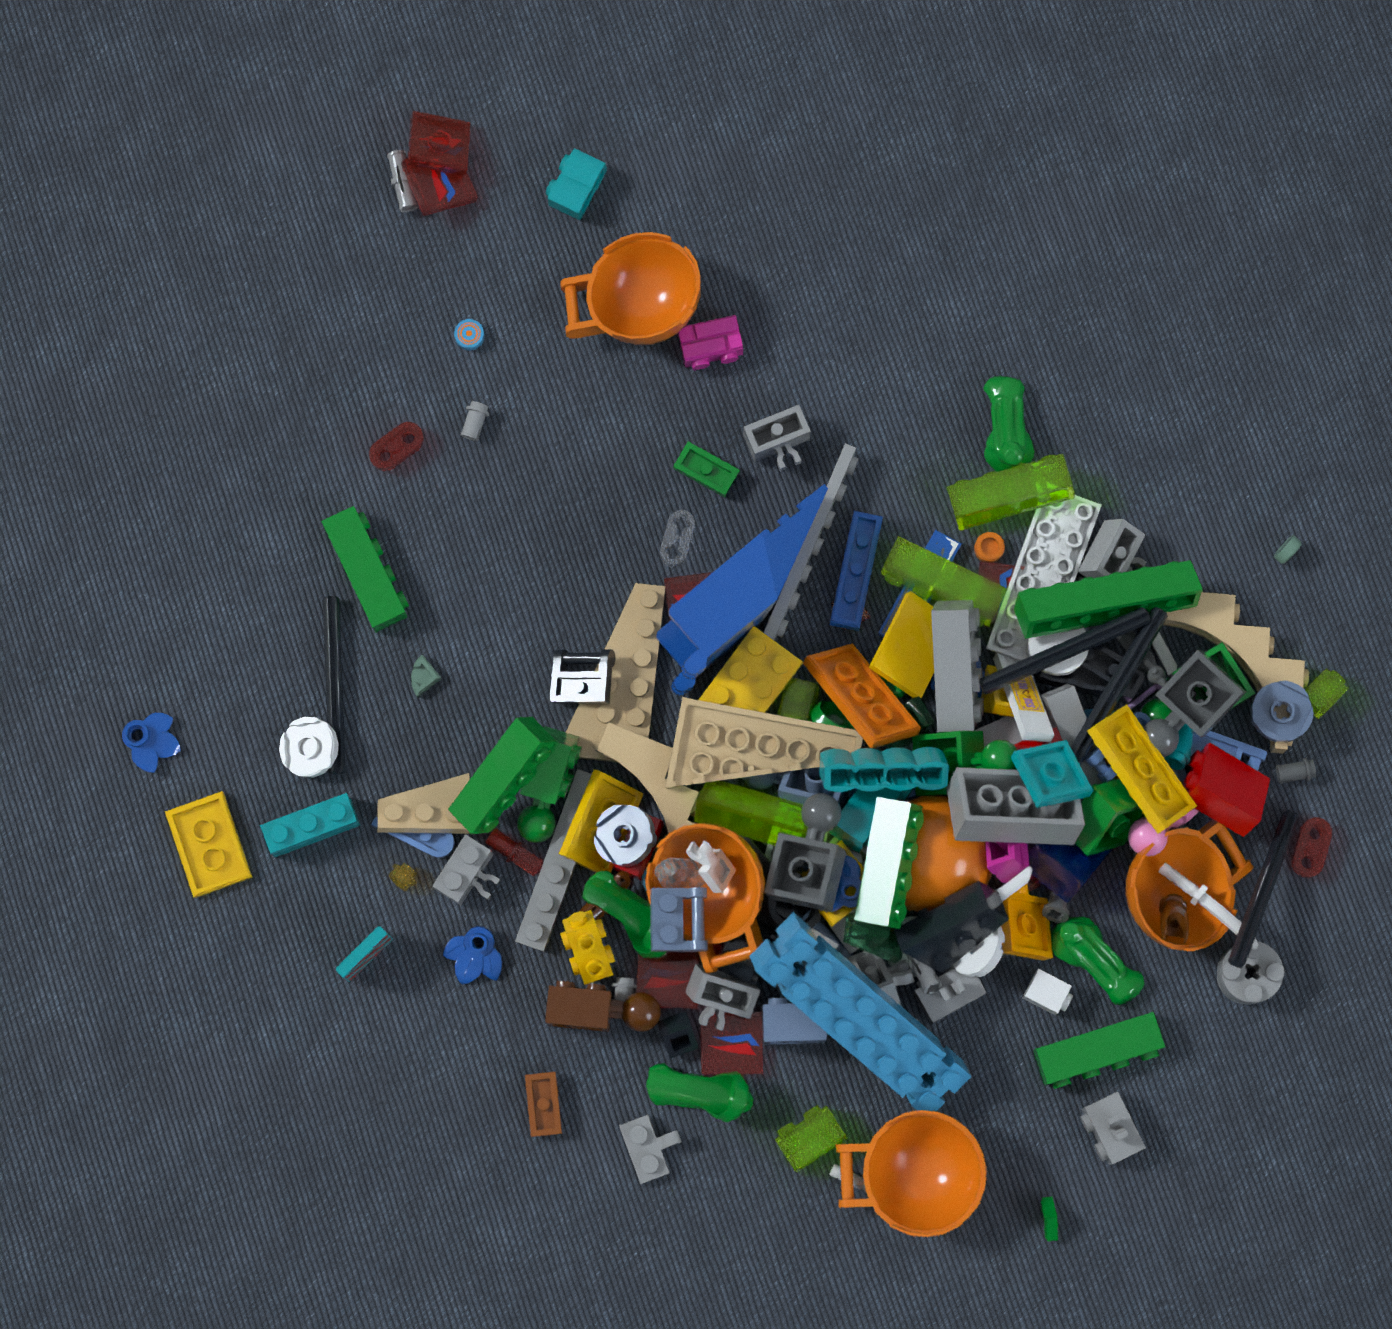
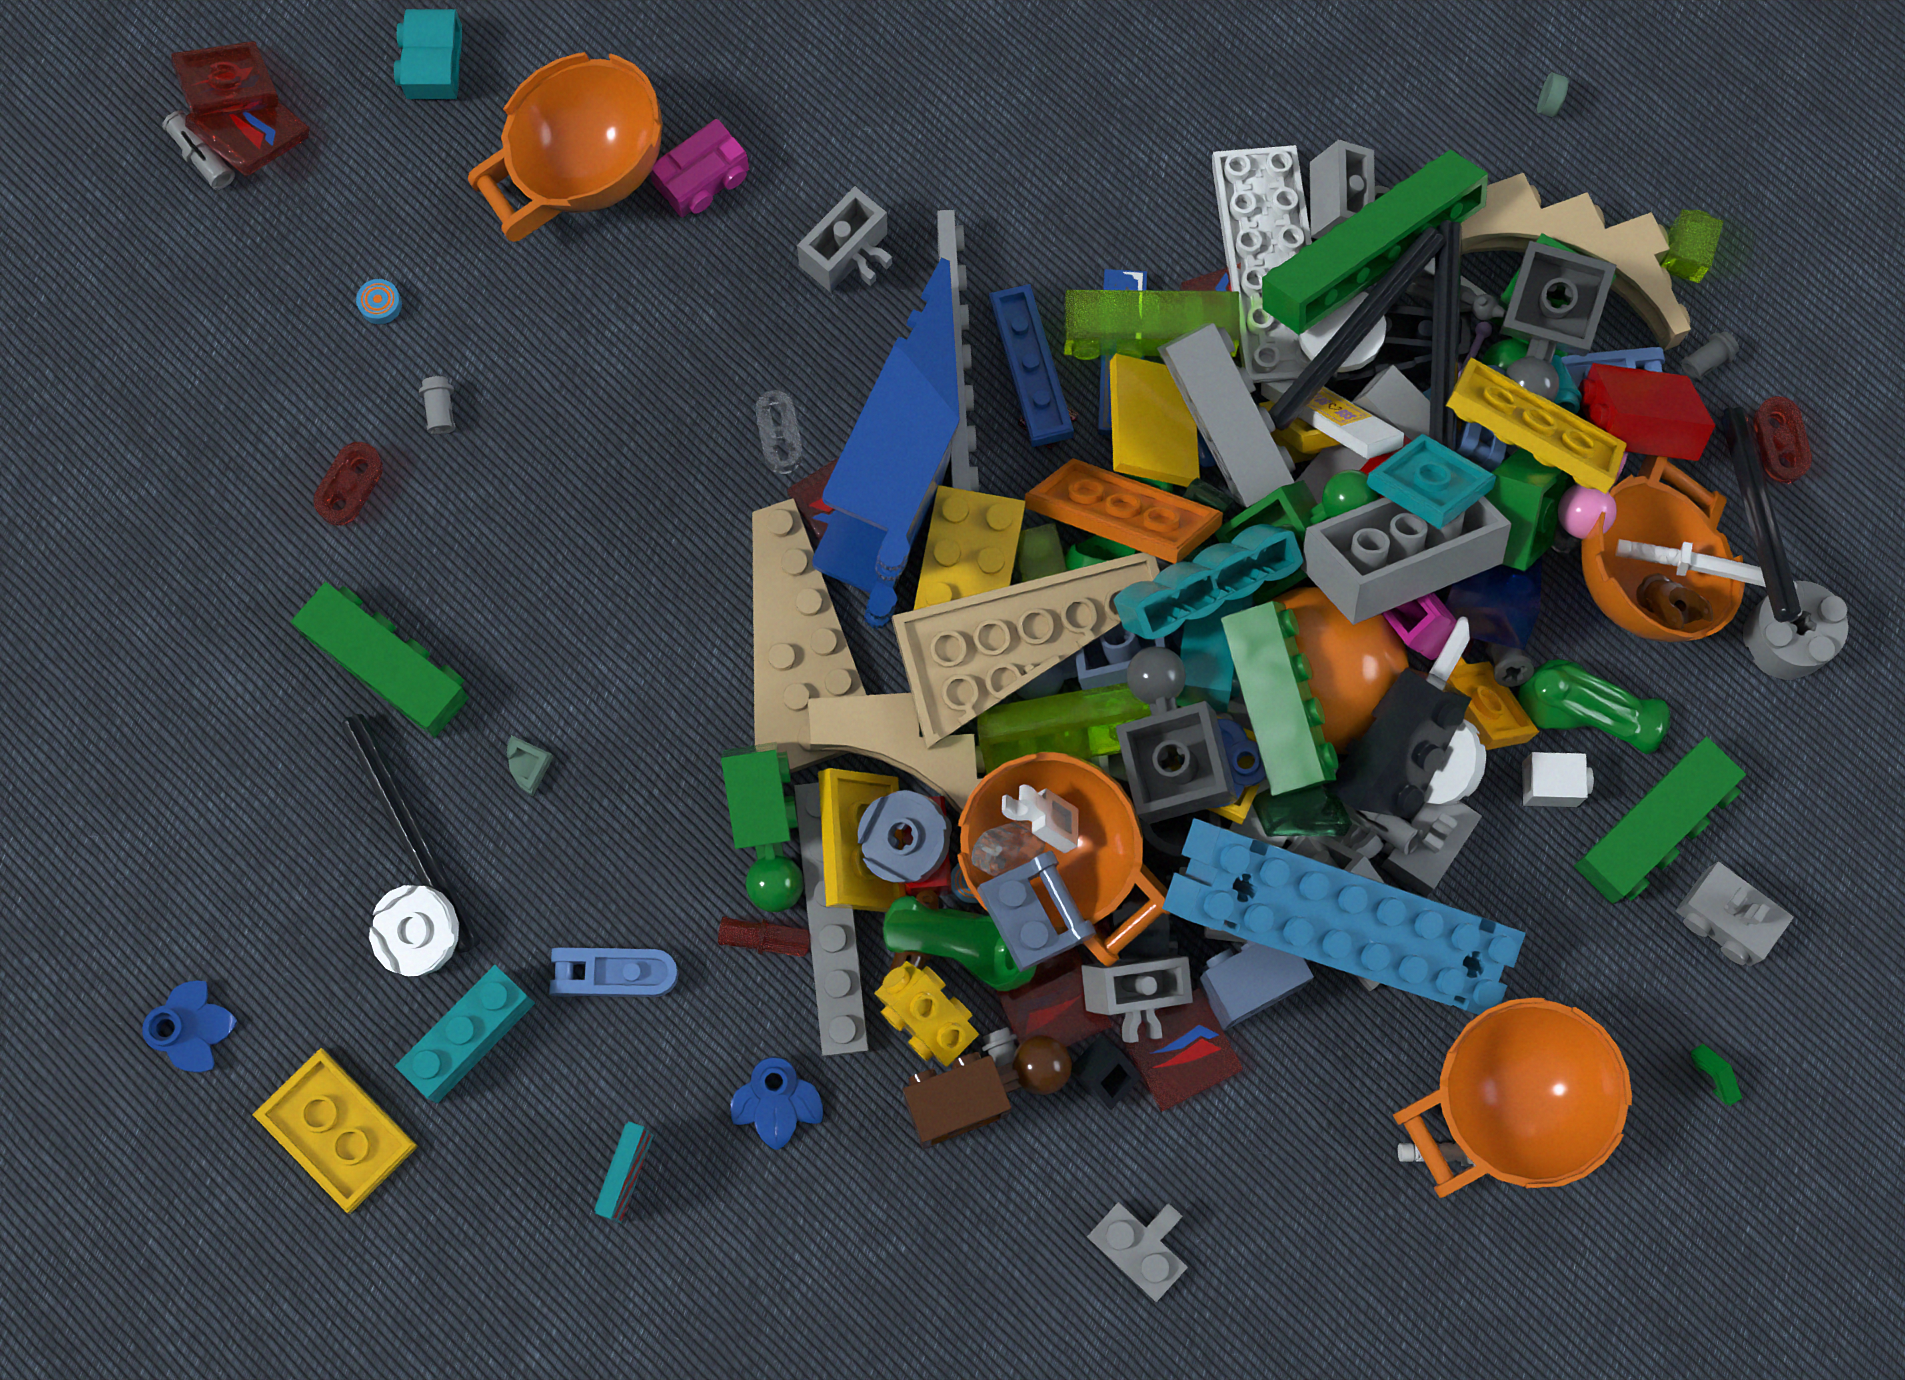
camera: 30 degrees left, 5 degrees down
(403, 876) = (626, 1042): clear yellow plate -> none
(422, 809) = (617, 934): tan wing -> none
(464, 870) = (707, 993): light grey brick -> none
(502, 775) = (700, 834): green brick -> none
(543, 1104) = (970, 1258): dark orange plate -> none
(582, 686) = (747, 673): plate -> none
(706, 469) = (773, 328): green plate -> none
(721, 1096) = (1206, 1126): green hair -> none
(810, 1138) = (1351, 1124): clear neon green brick -> none
(989, 547) = (1182, 261): orange tile -> none
(1008, 440) = (1143, 120): green hair -> none
(1011, 491) = (1177, 175): clear neon green brick -> none
(1298, 706) = (1646, 302): sand blue plate -> none

